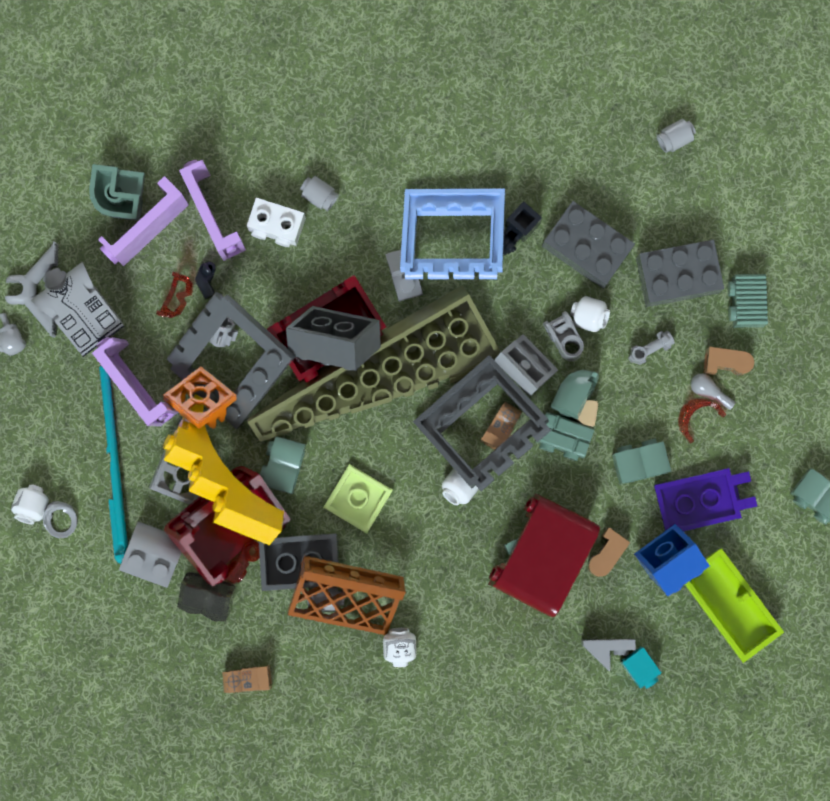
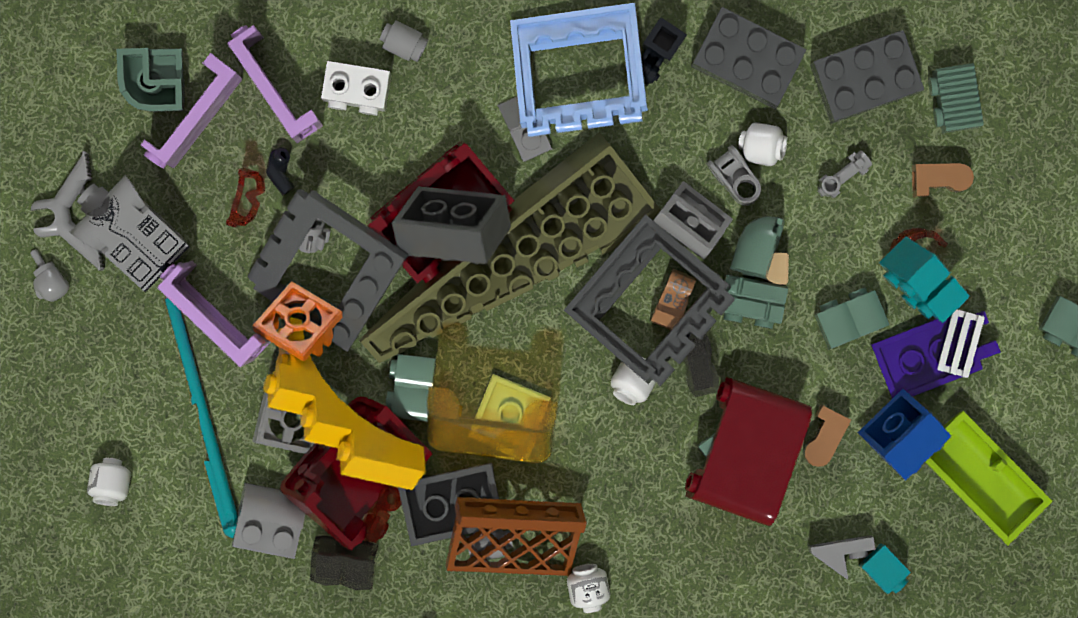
camera: 10 degrees left, 5 degrees up
(57, 505) = (155, 480): light grey piece -> none
(365, 519) = (486, 438): none -> clear yellow windscreen
(515, 488) = (700, 373): none -> clear smoke brick
(701, 436) = (923, 280): none -> teal piece
(704, 386) = (917, 213): light grey piece -> none
(735, 473) = (972, 348): none -> white tile

